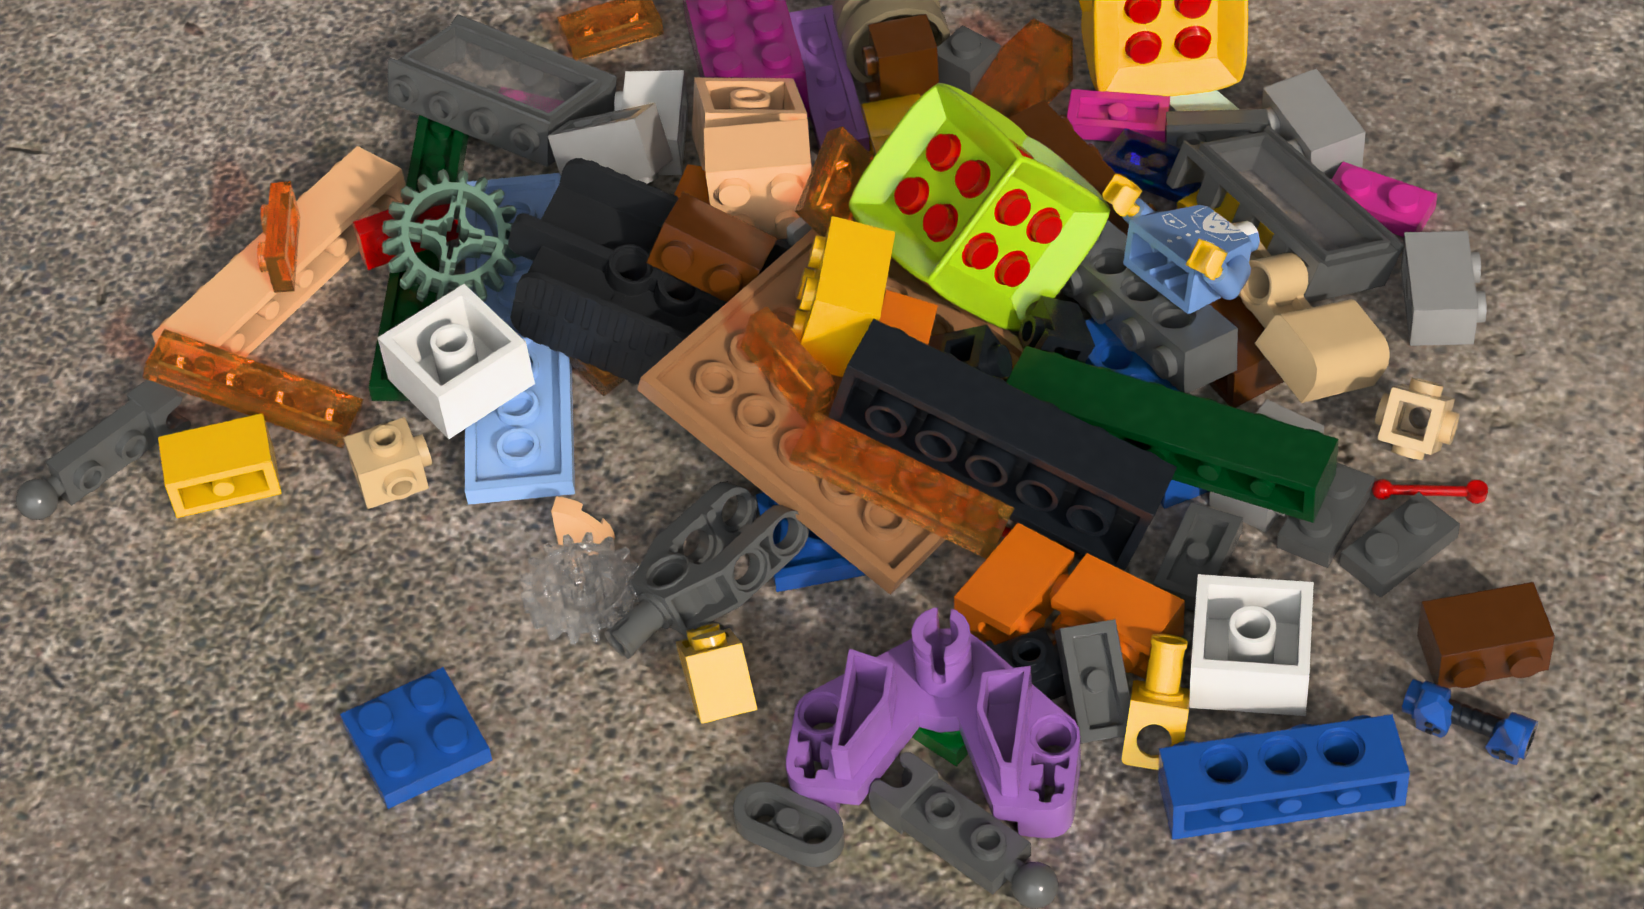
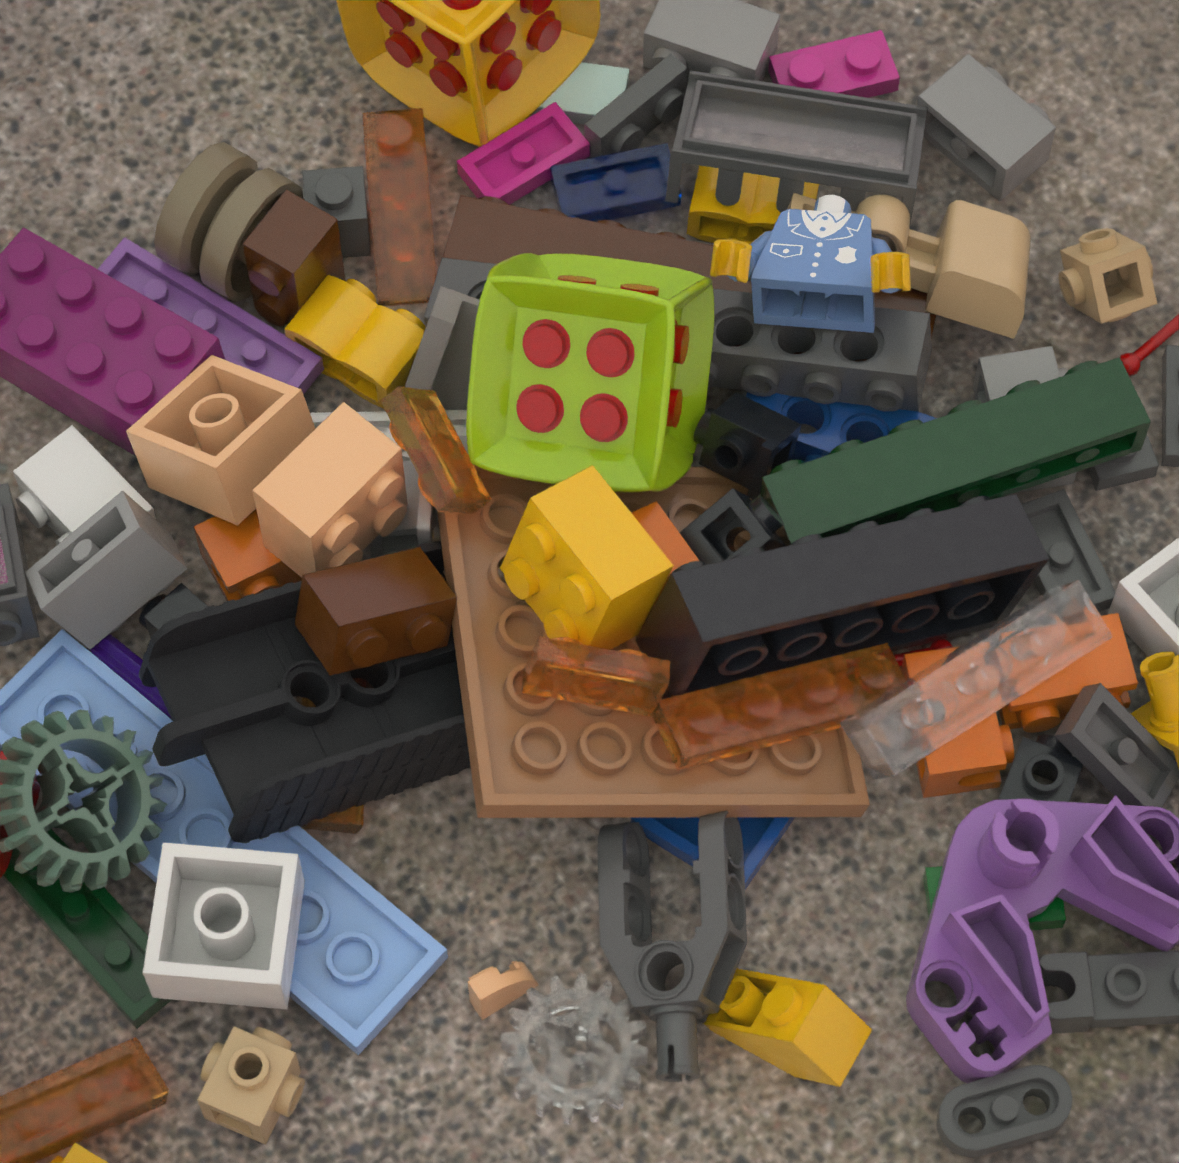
camera: 50 degrees left, 15 degrees up
(1028, 548) = (976, 680): none -> clear brick

